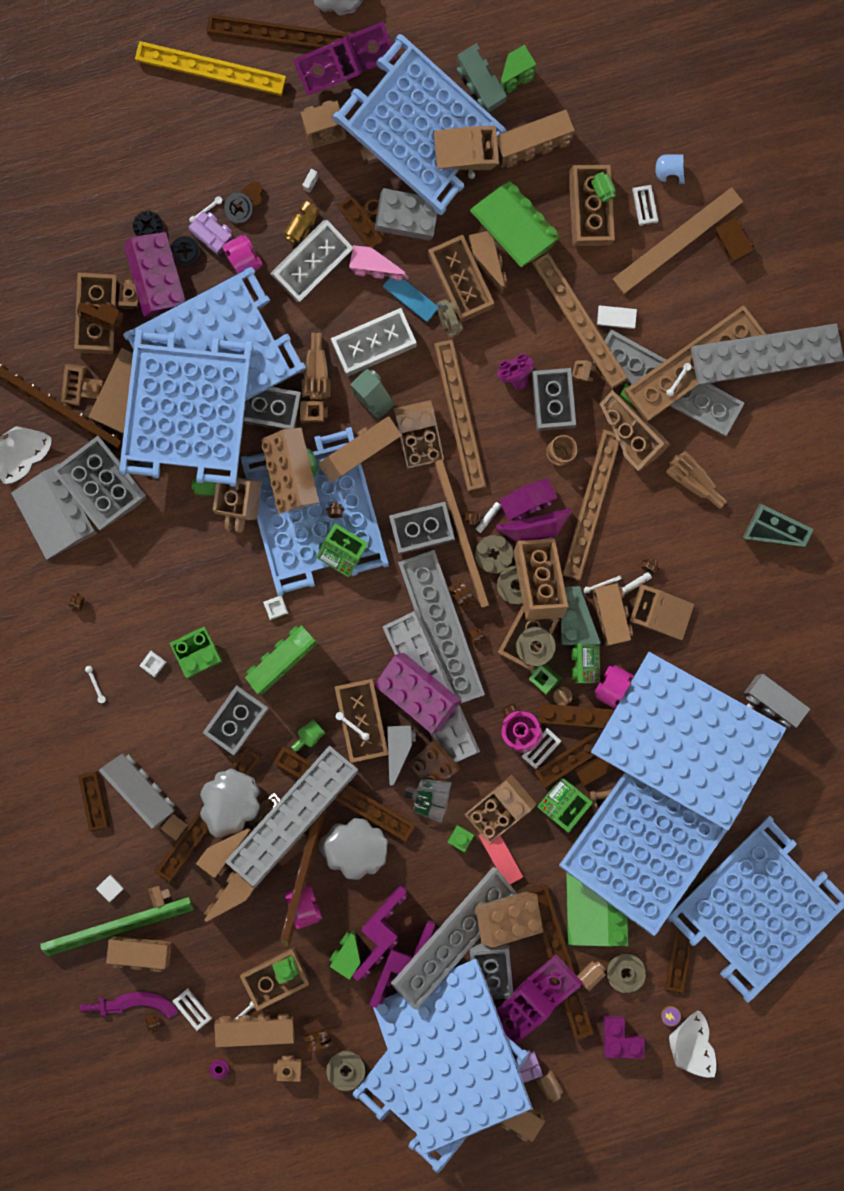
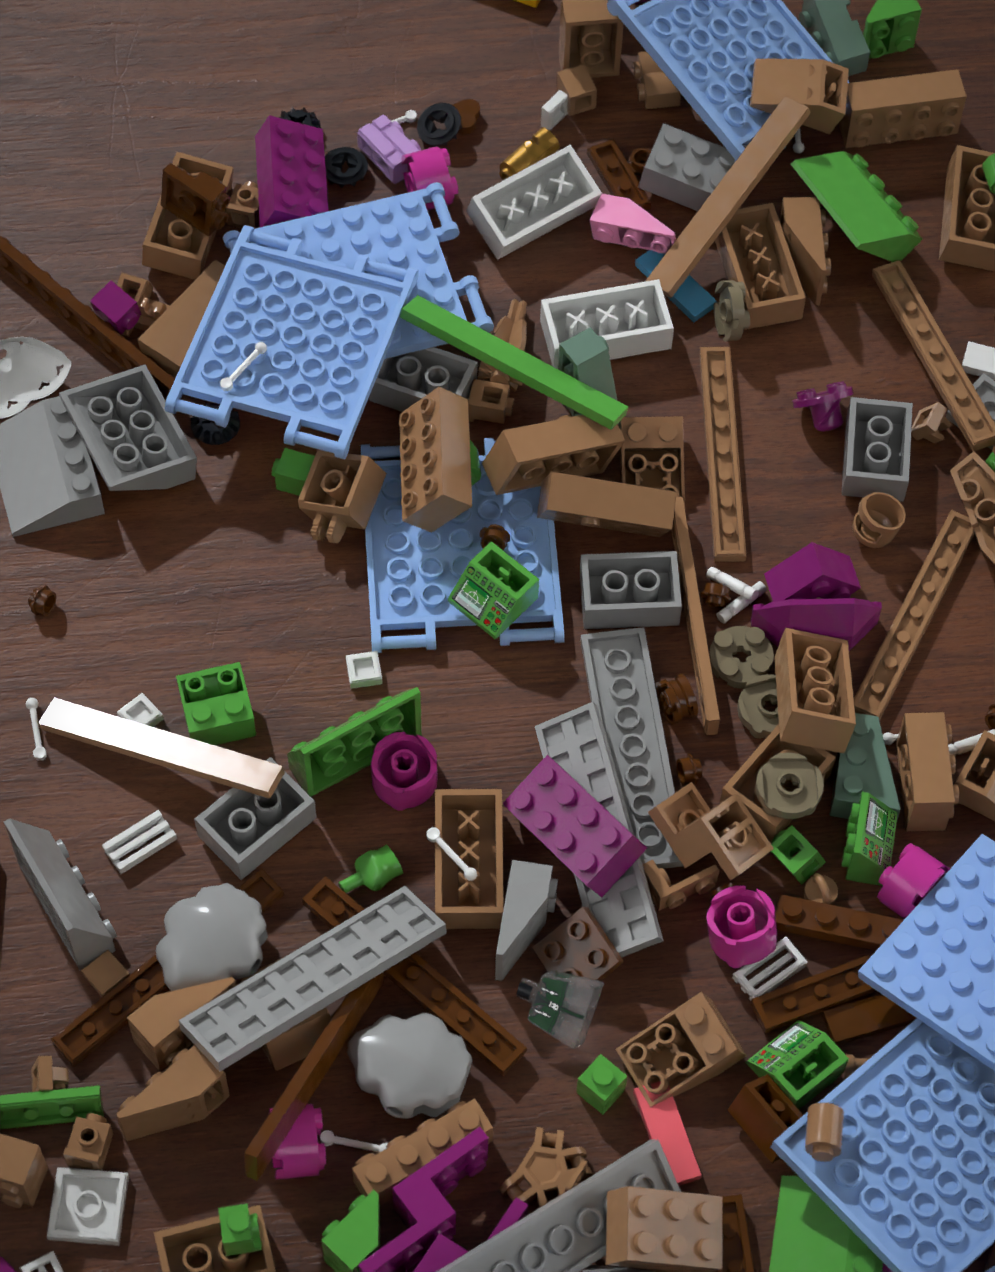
camera: 10 degrees right, 25 degrees down
(69, 394) = (116, 307): none -> magenta brick
(153, 452) = (227, 383): none -> white hinge
(167, 738) = (134, 831): none -> white tile
(172, 689) = (162, 748): none -> tile
(195, 933) = (89, 1154): none -> medium nougat brick
(199, 959) = (88, 1206): none -> white tile
(318, 895) = (328, 1138): none -> white hinge
(321, 160) = (579, 88): none -> medium nougat brick
(323, 397) = (514, 362): none -> bright green tile
(324, 672) = (404, 770): none -> dark pink brick
(372, 897) = (411, 1153): none -> medium nougat brick
(397, 479) = (606, 504): none -> medium nougat brick
(434, 239) = (729, 195): none -> medium nougat tile
(440, 893) = (547, 1169): none -> medium nougat piece
(470, 711) = (674, 896): none -> medium nougat bracket
(481, 508) = (734, 584): none -> white wheel
(495, 679) = (697, 830): none -> medium nougat bracket
(553, 840) = (764, 1113): none -> reddish brown brick
(586, 857) = (824, 1131): none -> medium nougat brick

